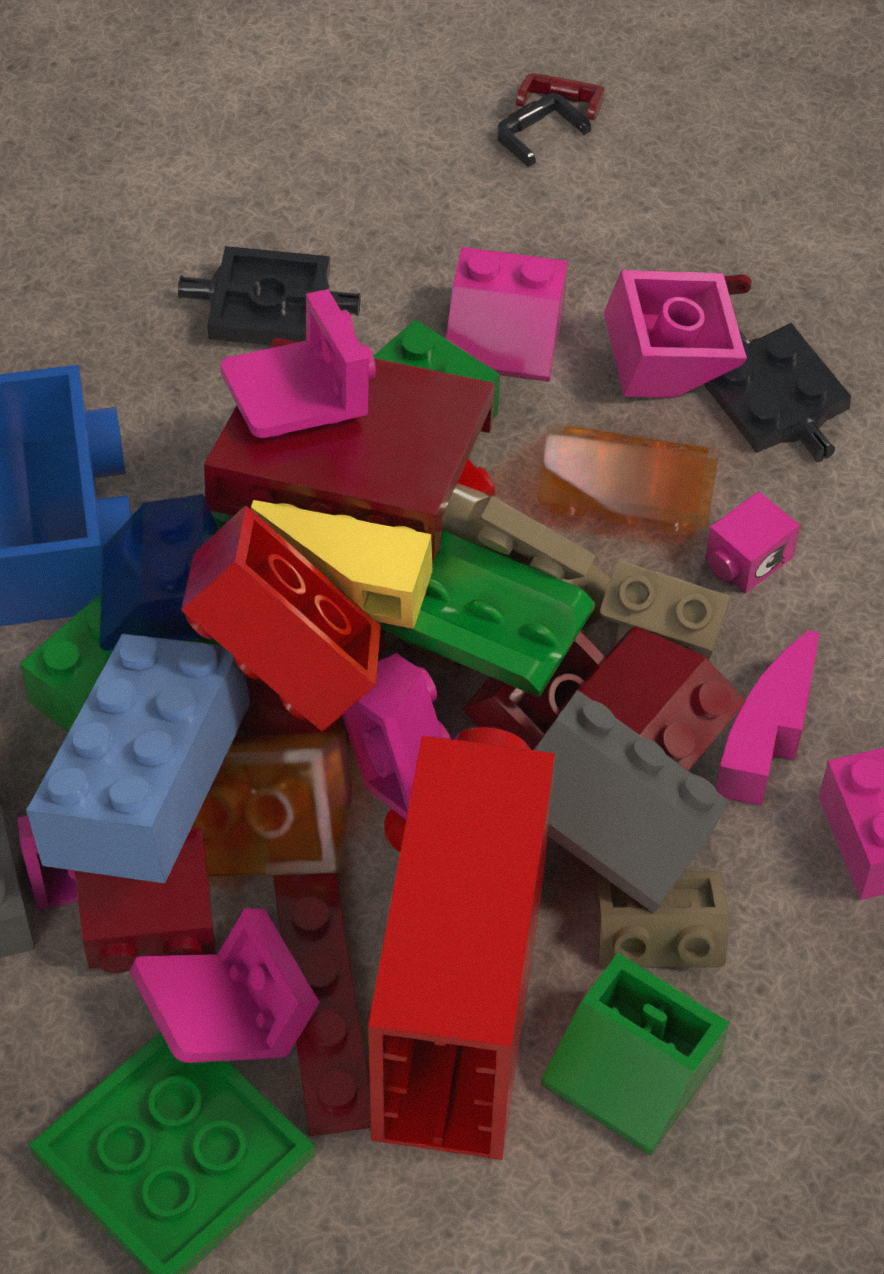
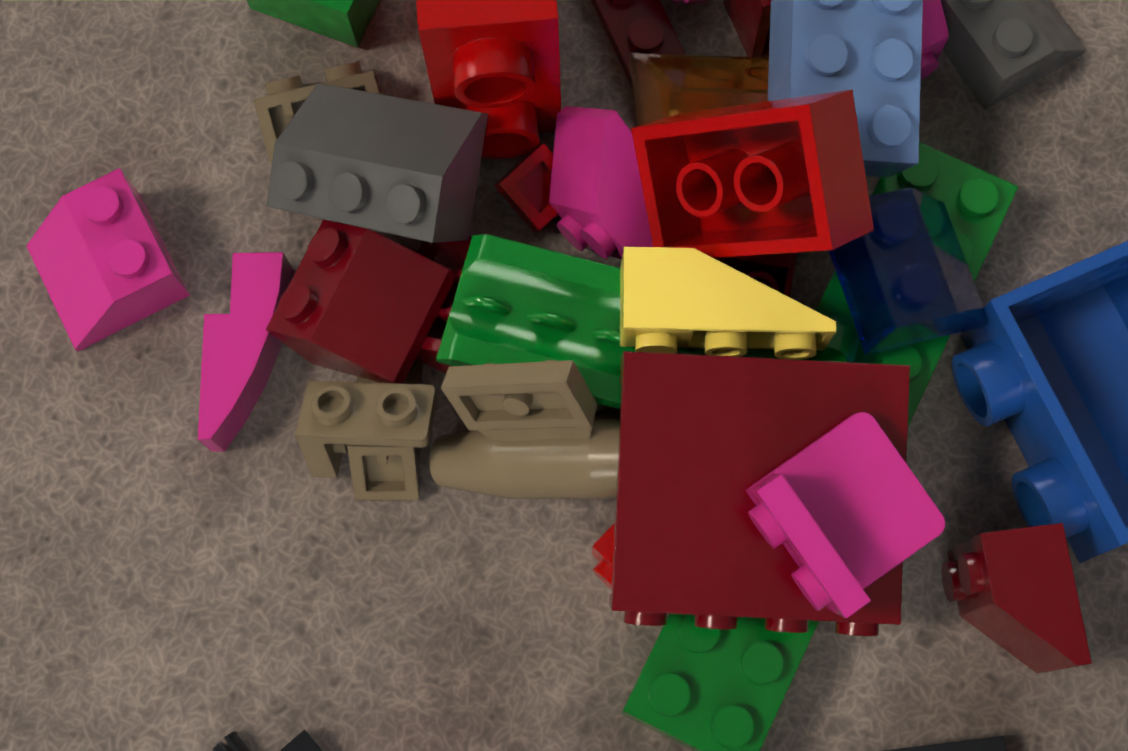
camera: 170 degrees right, 20 degrees up
(160, 392) = (1021, 594): none -> dark red slope
(628, 477) = (442, 640): clear orange slope -> none
(751, 542) = (291, 567): dark pink brick -> none

